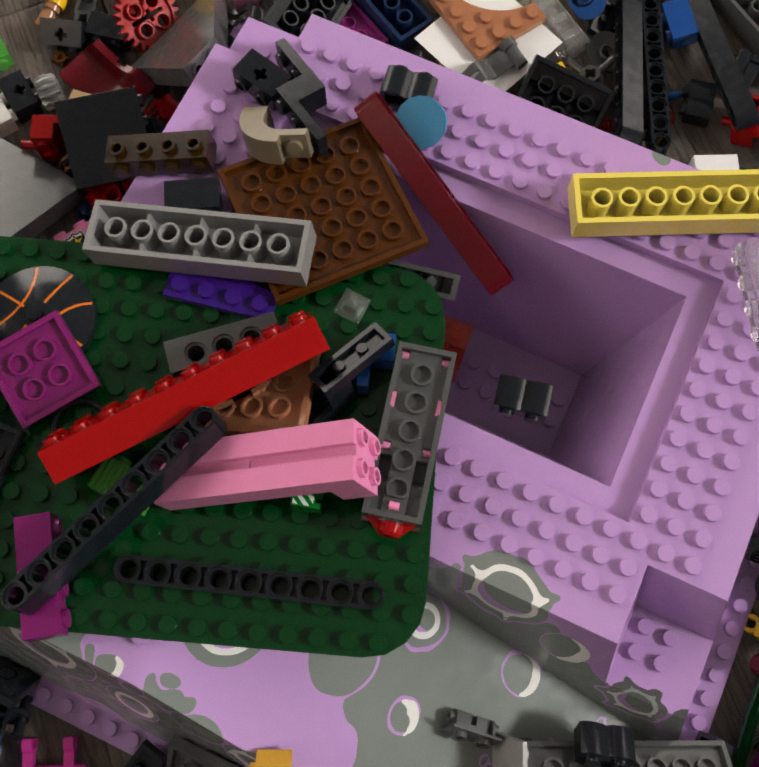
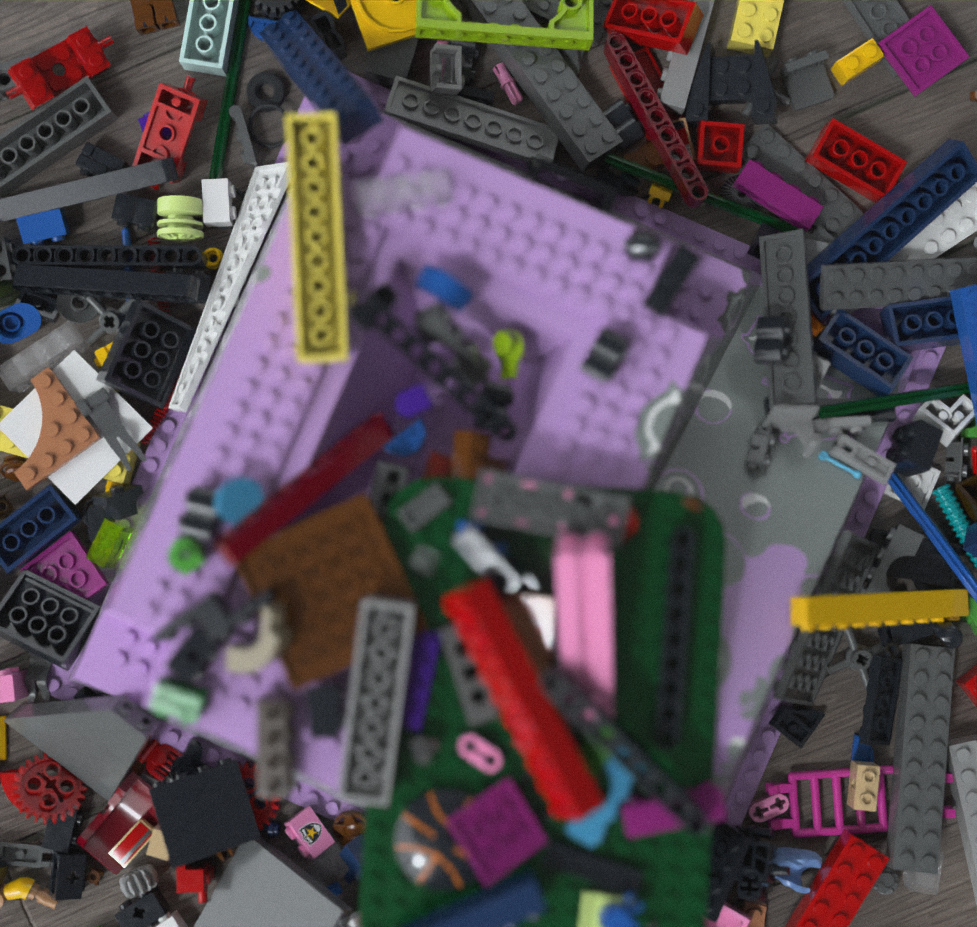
camera: 90 degrees left, 15 degrees up
(33, 477) = (592, 827): none -> dark azure arch
(43, 738) = (771, 811): none -> bright pink beam
(84, 82) = (132, 842): none -> slope
(130, 356) = (476, 757): none -> bright pink beam
(142, 295) = (421, 748): none -> dark grey tile
(215, 66) = (178, 700): none -> brick
(364, 73) = (195, 555): none -> bright green brick
(411, 306) = (424, 507): none -> dark grey tile
(411, 613) = (692, 504): none -> reddish brown piece
(471, 367) = (472, 453): none -> reddish brown brick
(482, 311) = (408, 441): none -> blue tile
(526, 310) = (413, 402): none -> dark purple brick
(575, 303) = (423, 361): none -> black beam
(585, 417) = (509, 351): none -> lime piece
(589, 511) = (604, 355): none -> black brick
(615, 324) = (437, 326): none -> dark grey arch
(637, 261) = (385, 295): none -> black brick
(658, 333) = (444, 288): none -> blue brick
(683, 598) = (671, 280): none -> black plate
(695, 136) = (180, 218): none -> yellowish green wheel
(725, 562) = (642, 245): none -> black head

